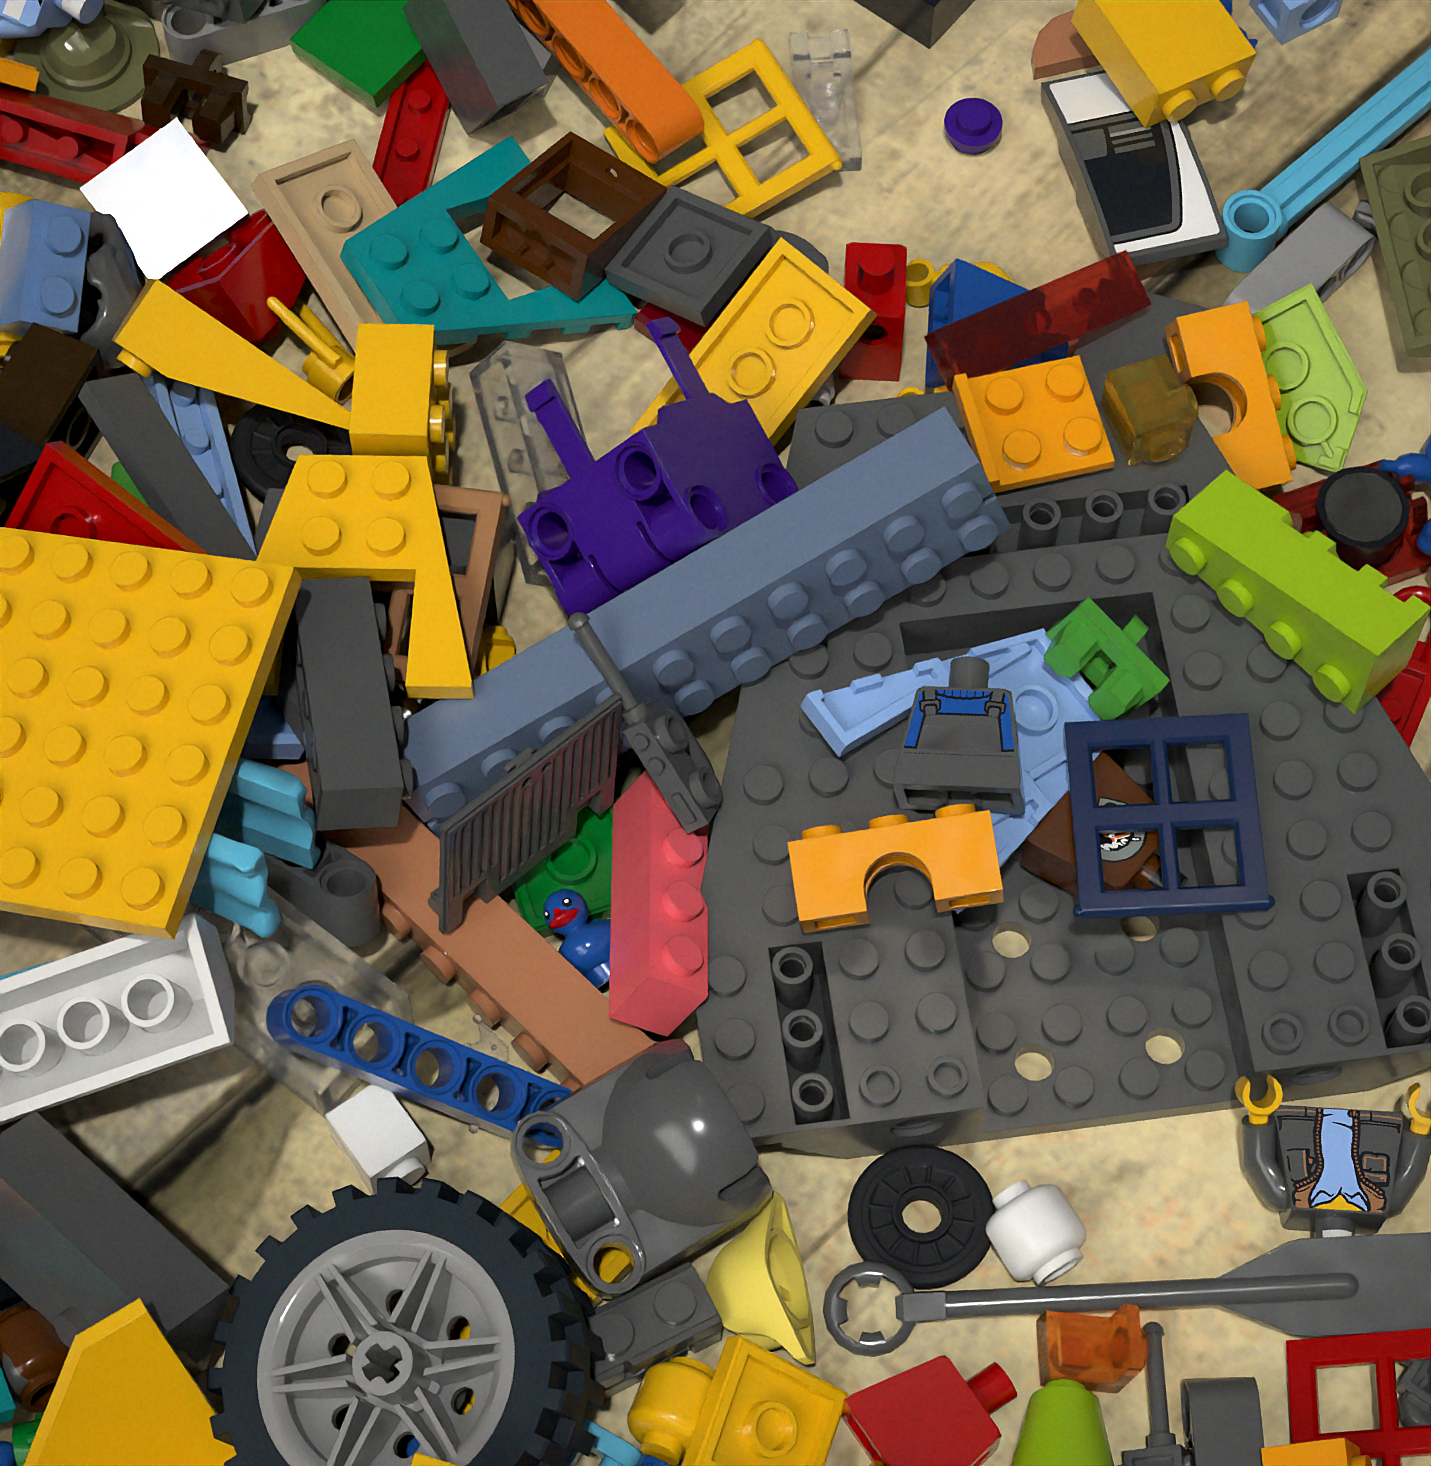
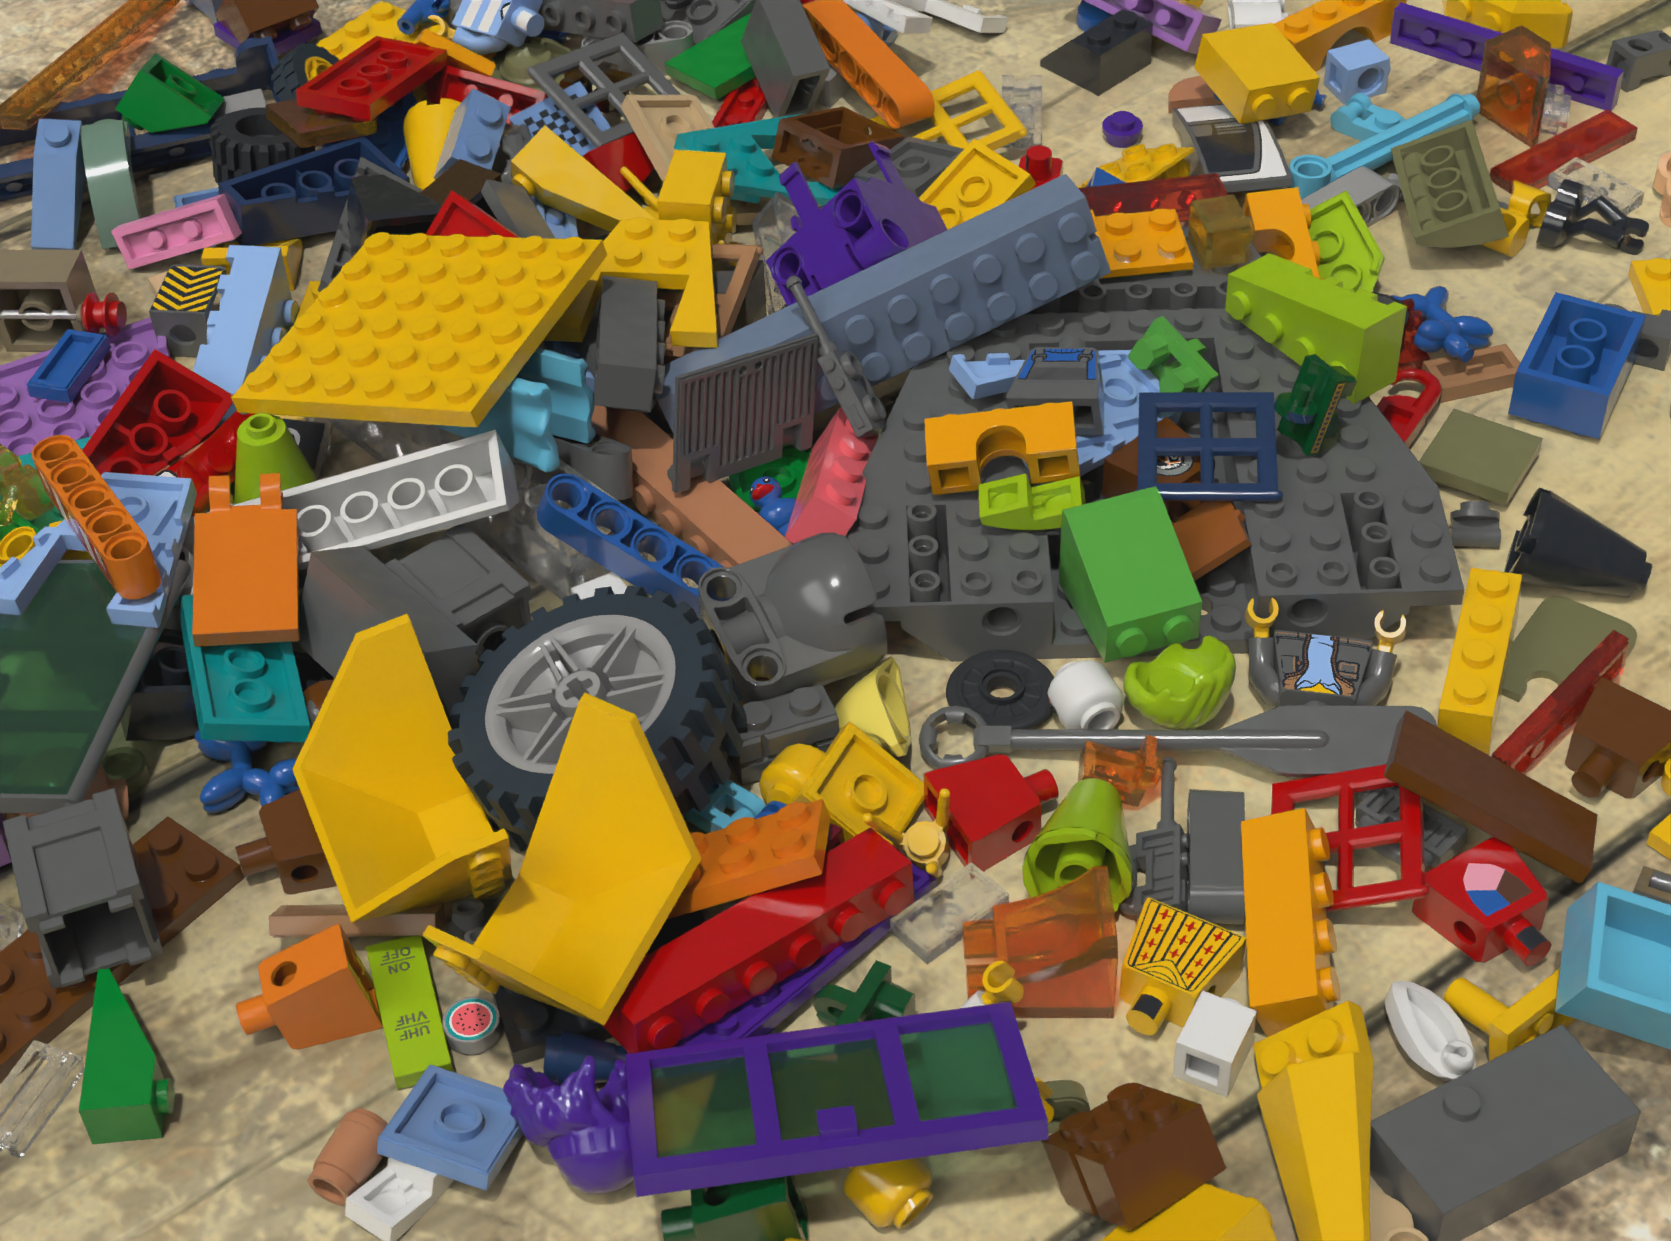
camera: 10 degrees right, 20 degrees down
(187, 1162) = (468, 587): none -> dark grey container
(222, 128) = (613, 92): none -> dark grey window
(942, 951) = (1018, 506): none -> lime slope
(1008, 216) = (1149, 163): none -> yellow hinge
(1080, 1049) = (1128, 575): none -> bright green slope
(1160, 1202) = (1182, 684): none -> lime piece
(1166, 966) = (1211, 535): none -> dark orange piece
(1311, 755) = (1311, 406): none -> dark green hips
(1338, 92) = (1363, 119): none -> medium azure plate

